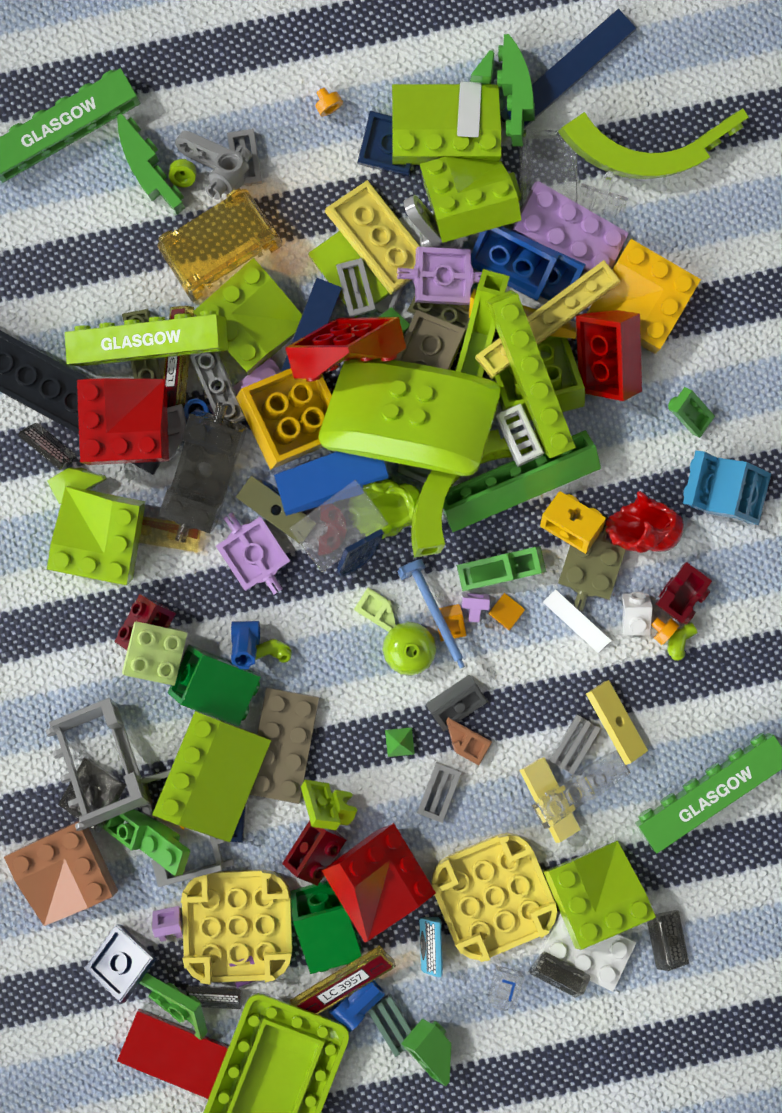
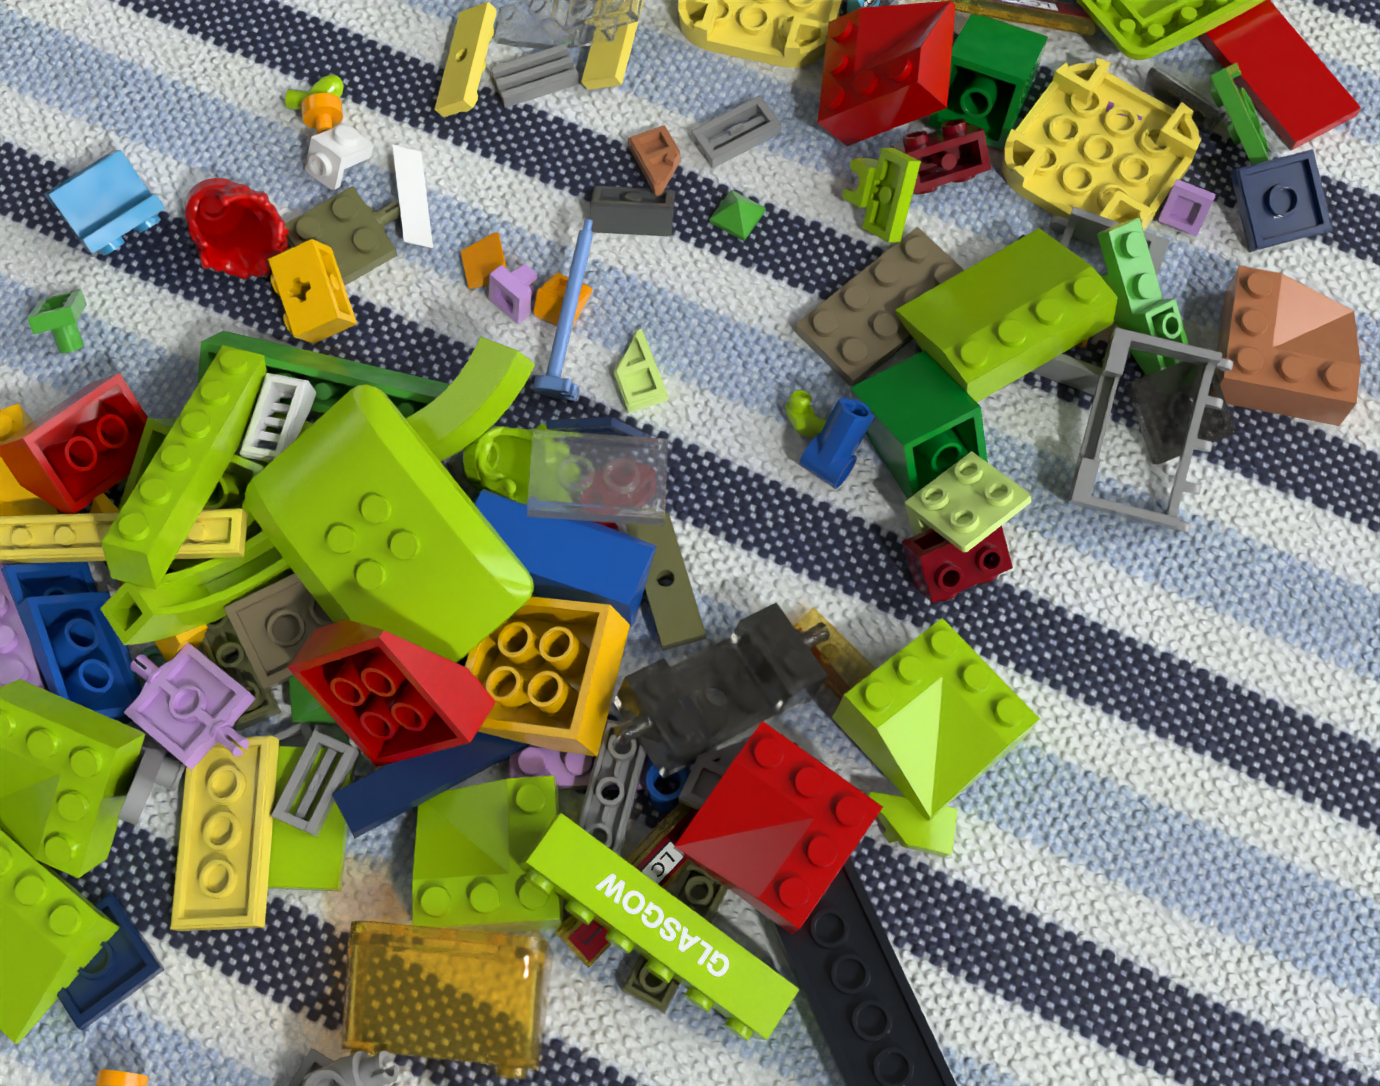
camera: 145 degrees left, 20 degrees down
(48, 446) = (915, 902): slope -> none
(253, 553) = (740, 550): lavender plate -> none
(416, 638) = (636, 300): lime cylinder -> none
(501, 568) = (443, 308): bright green slope -> none
(683, 592) = (264, 137): dark red cylinder -> none

